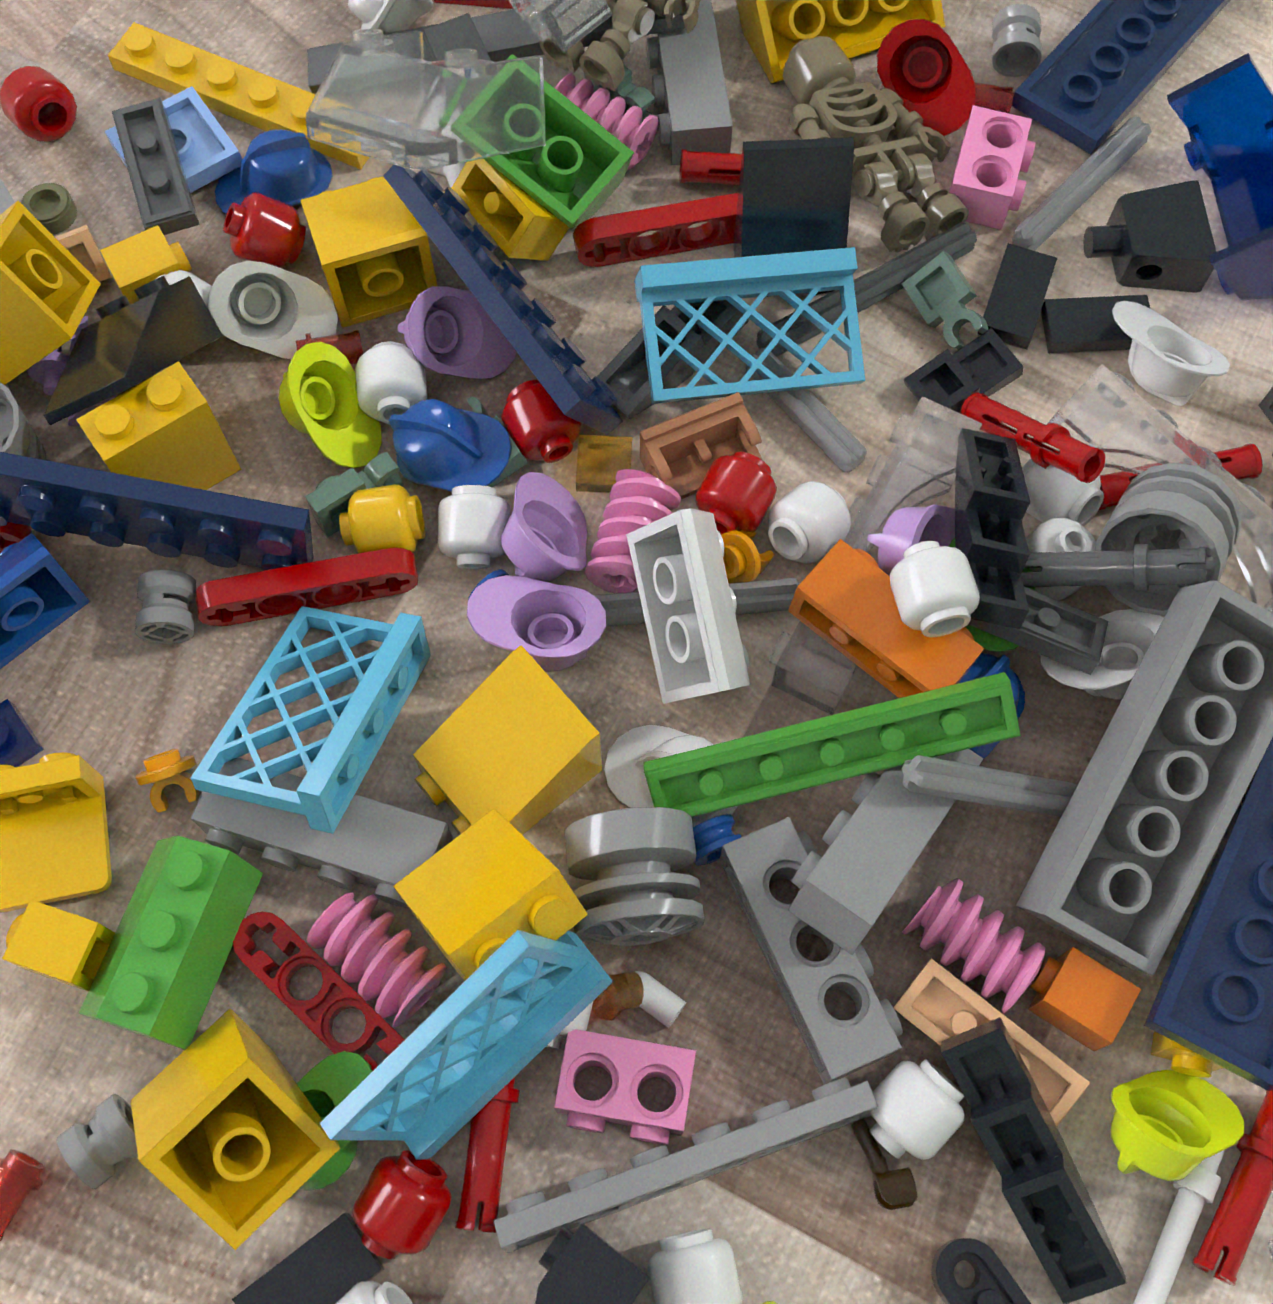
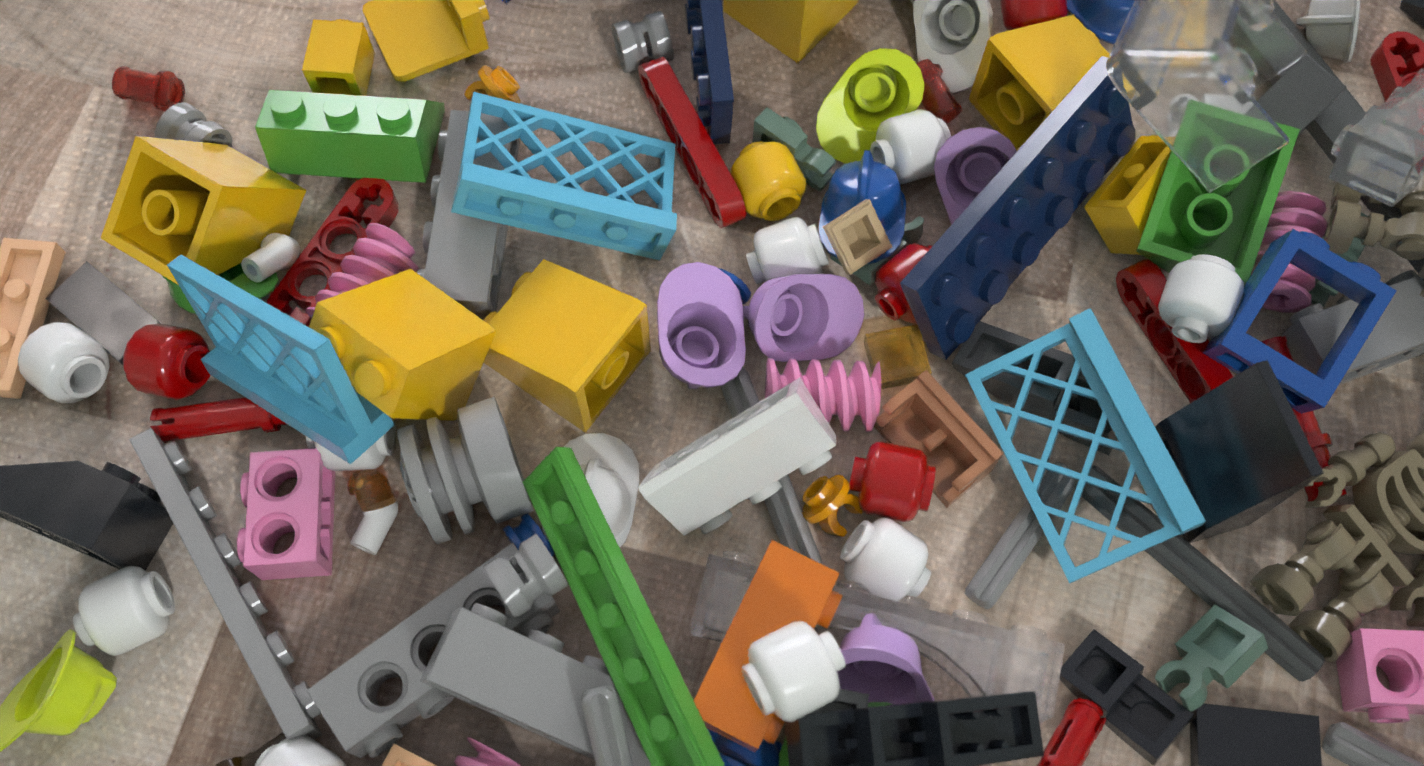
camera: 75 degrees right, 0 degrees up
(311, 1048) = (276, 254): none -> white arm
(487, 448) = (857, 236): none -> tan slope
(642, 188) = (1201, 297): none -> white head
(655, 147) = (1353, 279): none -> blue window
(770, 828) = (537, 566): none -> light grey wheel

